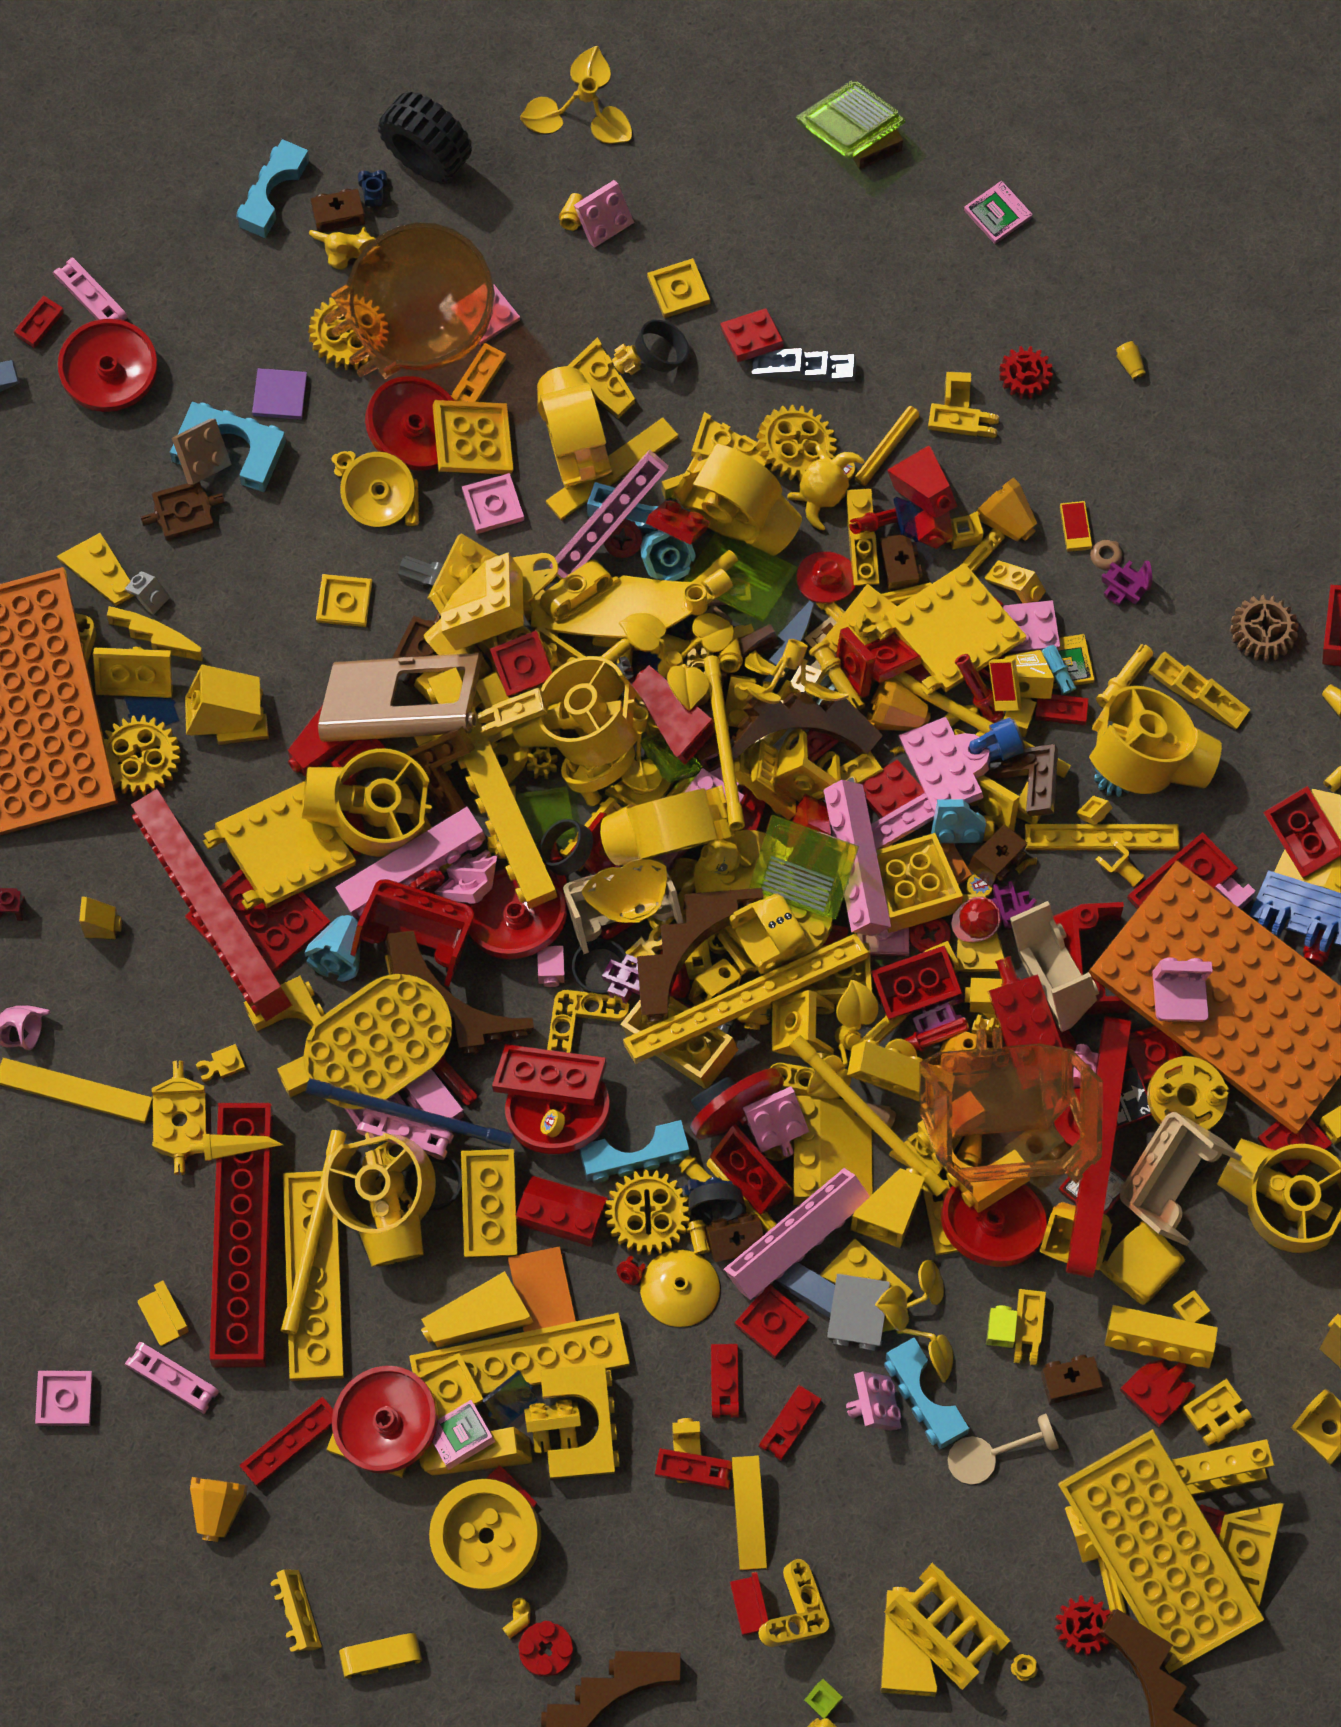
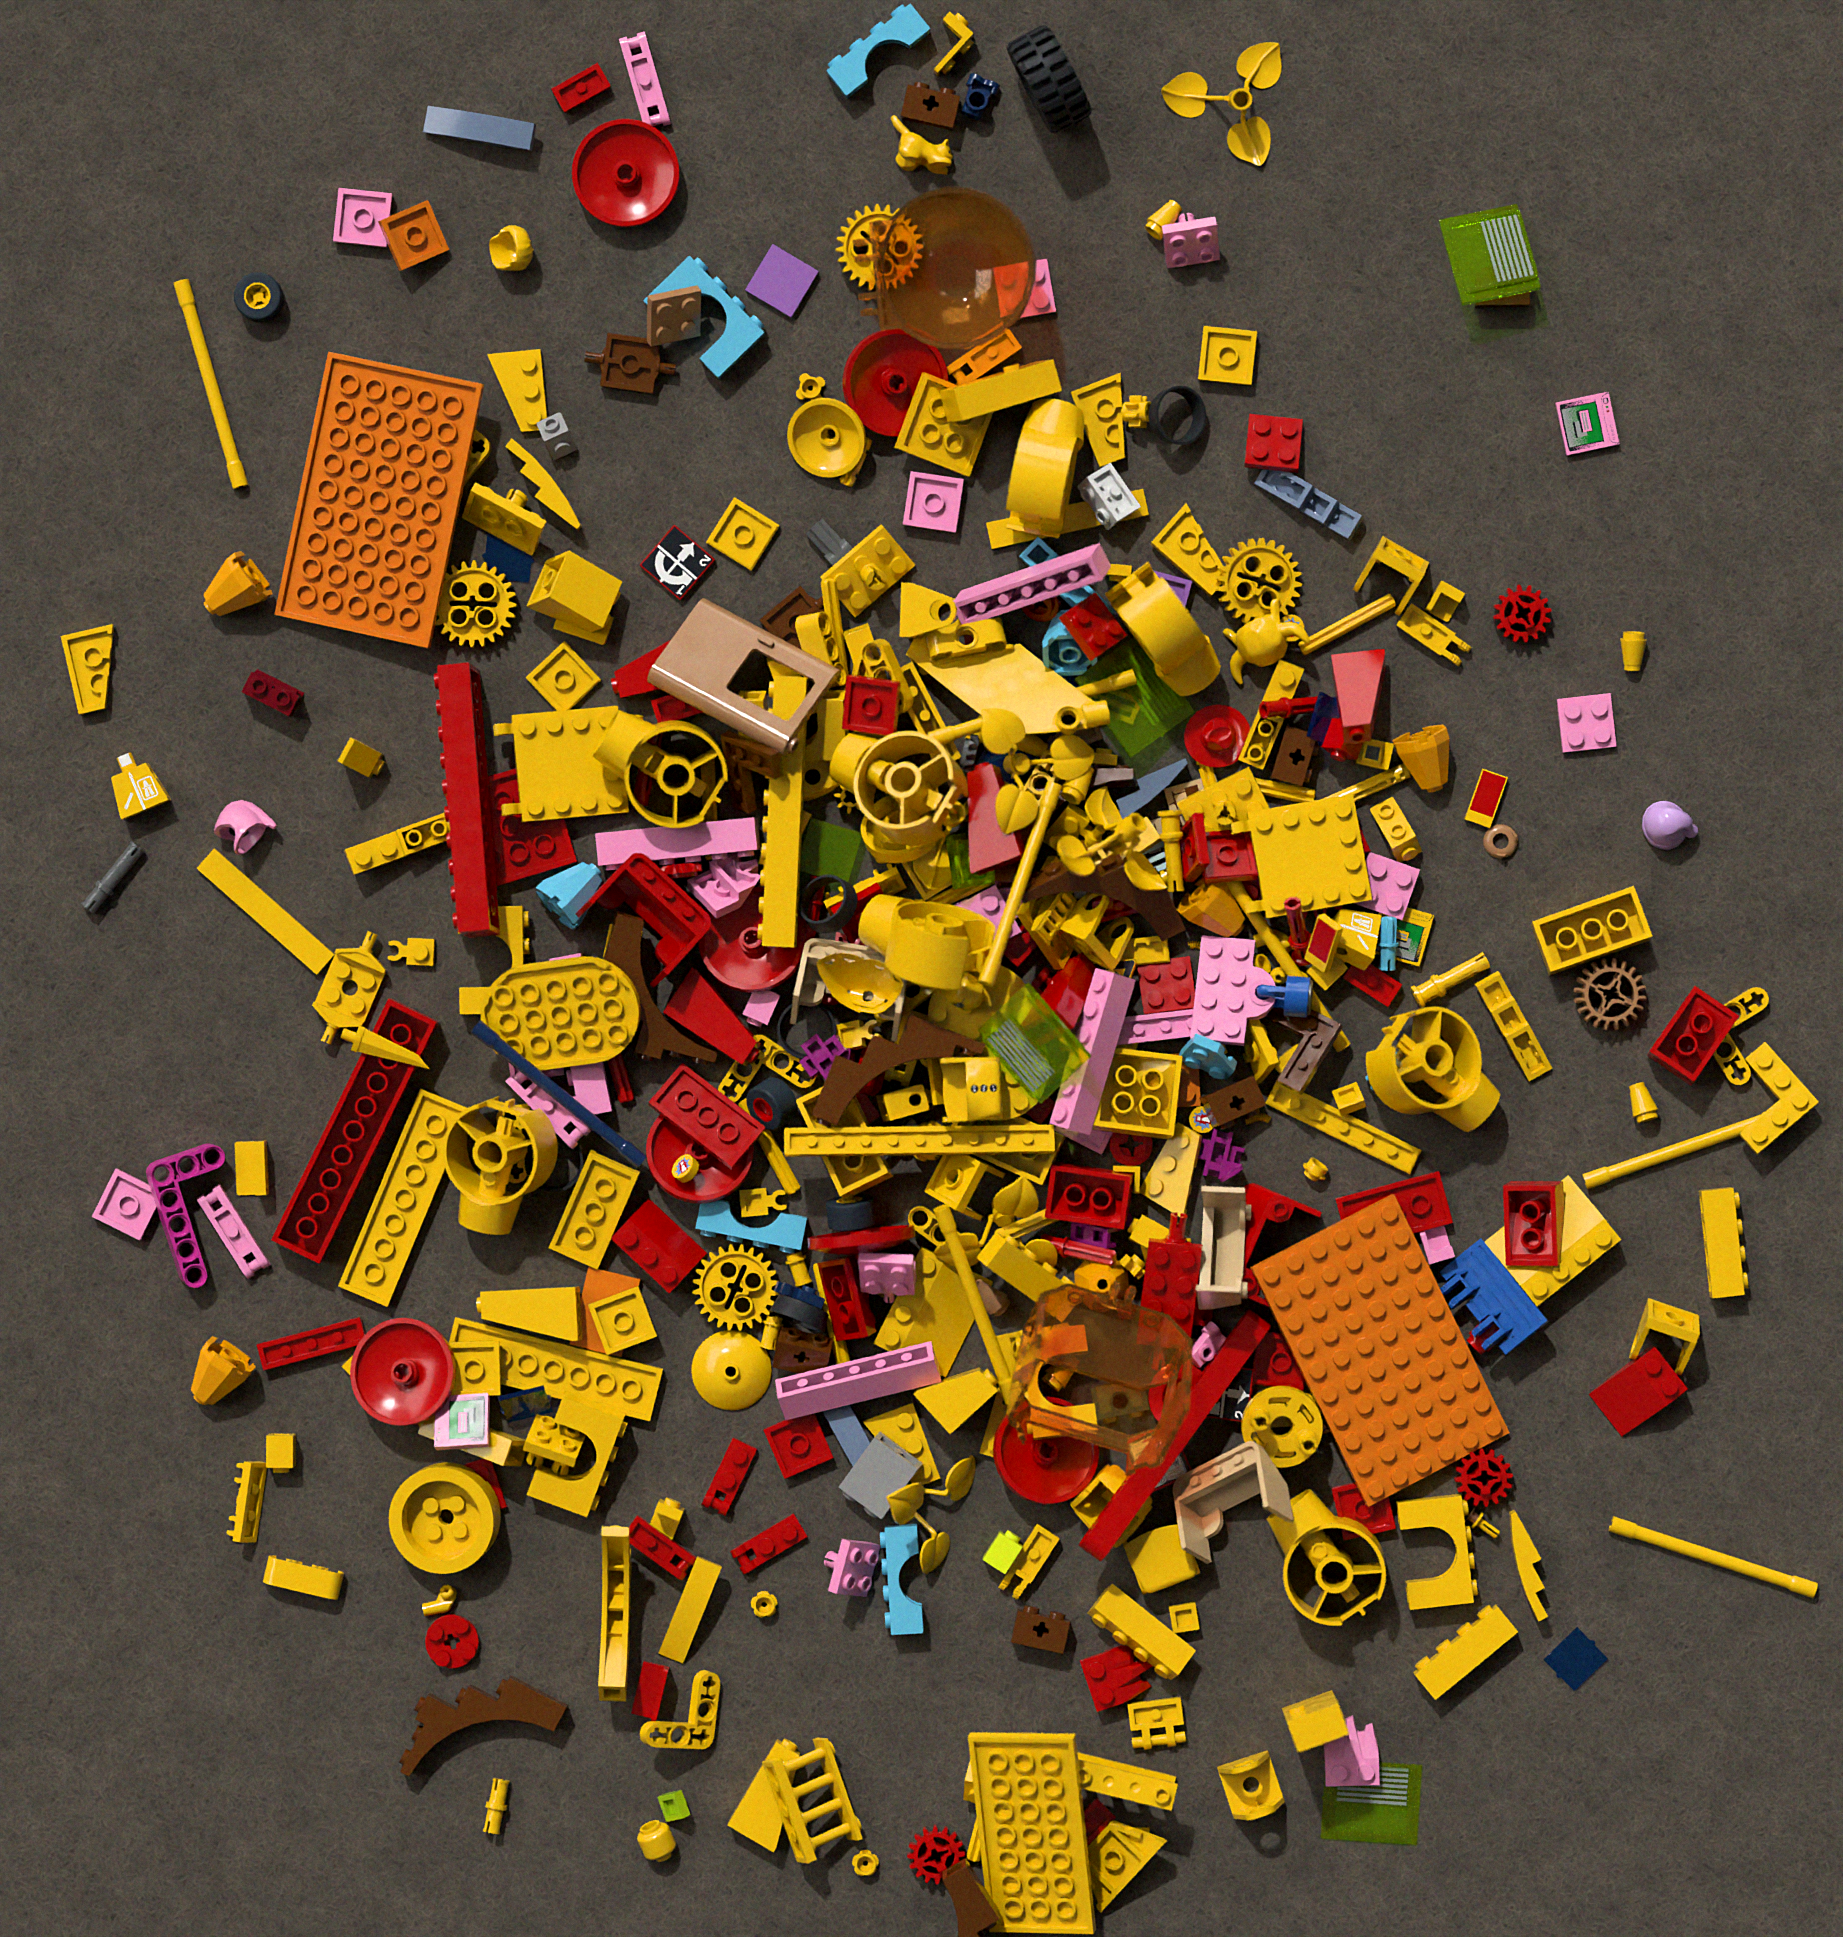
camera: 30 degrees right, 20 degrees up
(38, 464) = (511, 249): none -> yellow hair
(113, 1376) = (178, 1209): none -> dark pink beam
(168, 977) = (397, 844): none -> yellow slope
(245, 781) = (563, 678): none -> yellow tile
(294, 1310) = (369, 1227): yellow piece -> none
(299, 647) = (677, 562): none -> tile
(306, 1551) = (280, 1452): none -> yellow brick
(335, 145) = (958, 26): none -> yellow bracket
(485, 603) = (864, 626): yellow slope -> none
(504, 384) = (1000, 390): none -> yellow brick
(512, 712) = (836, 757): yellow hinge -> none
(515, 995) = (711, 1018): none -> red slope
(561, 1285) = (622, 1320): none -> yellow plate
(601, 1037) = (772, 1103): none -> black wheel
(628, 1088) = (776, 1158): none -> yellow axle
(629, 1272) = (690, 1335): red plate -> none
(630, 1132) = (756, 1201): none -> yellow plate
(636, 431) = (1108, 496): none -> white bracket
(680, 1538) = (615, 1613): none -> yellow arch
(818, 1473) = (761, 1611): none -> yellow plate
(904, 370) = (1400, 560): none -> yellow hose
(974, 1460) = (917, 1657): tan piece -> none
(976, 920) = (1177, 1160): red piece -> none
(989, 829) = (1240, 1067): yellow tile -> none
(1097, 881) = (1315, 1169): none -> yellow plate
(1122, 866) = (1345, 1165): yellow piece -> none
(1125, 432) = (1586, 722): none -> bright pink plate
(1139, 581) = (1495, 883): magenta piece -> none
(1181, 989) = (1324, 1332): bright pink bracket -> none
(1221, 584) = (1591, 930): none -> yellow brick
(1236, 477) = (1667, 825): none -> lavender piece

